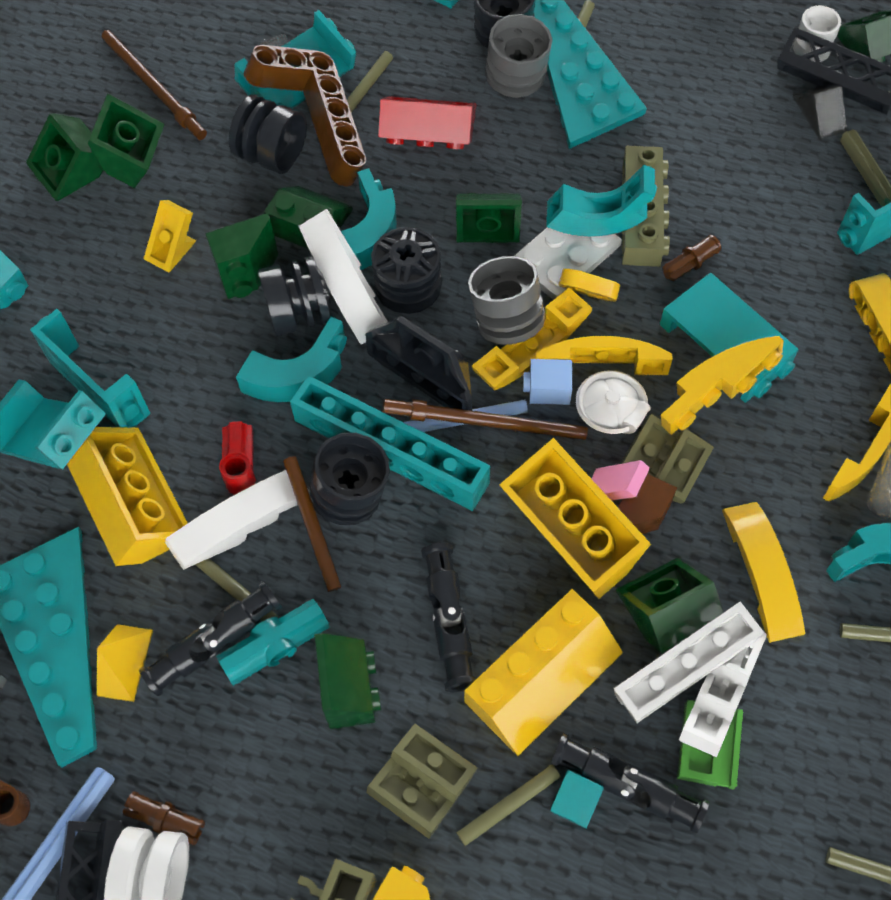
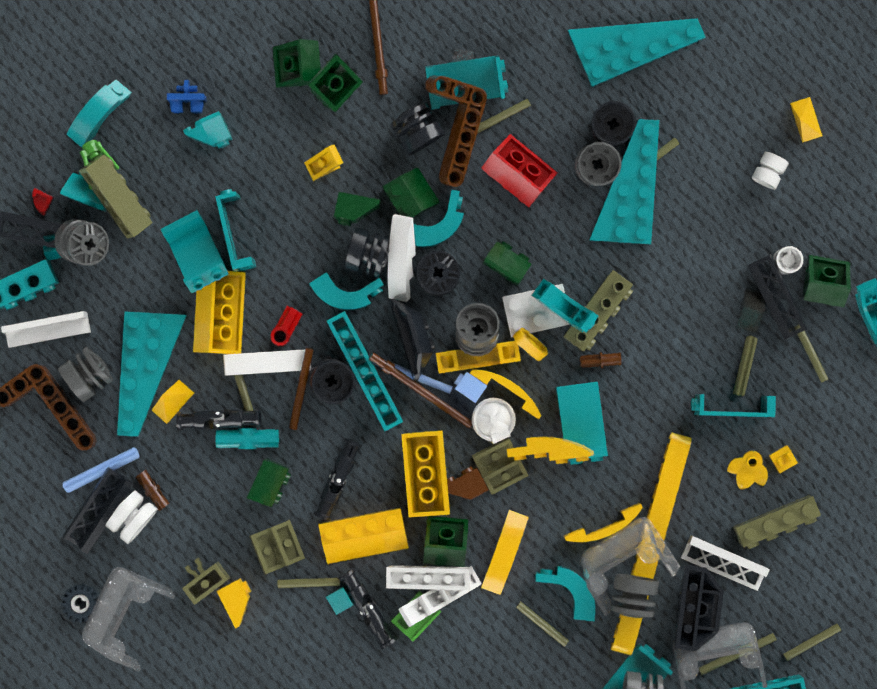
camera: 30 degrees right, 25 degrees up
(621, 480) = (461, 467): bright pink tile -> none

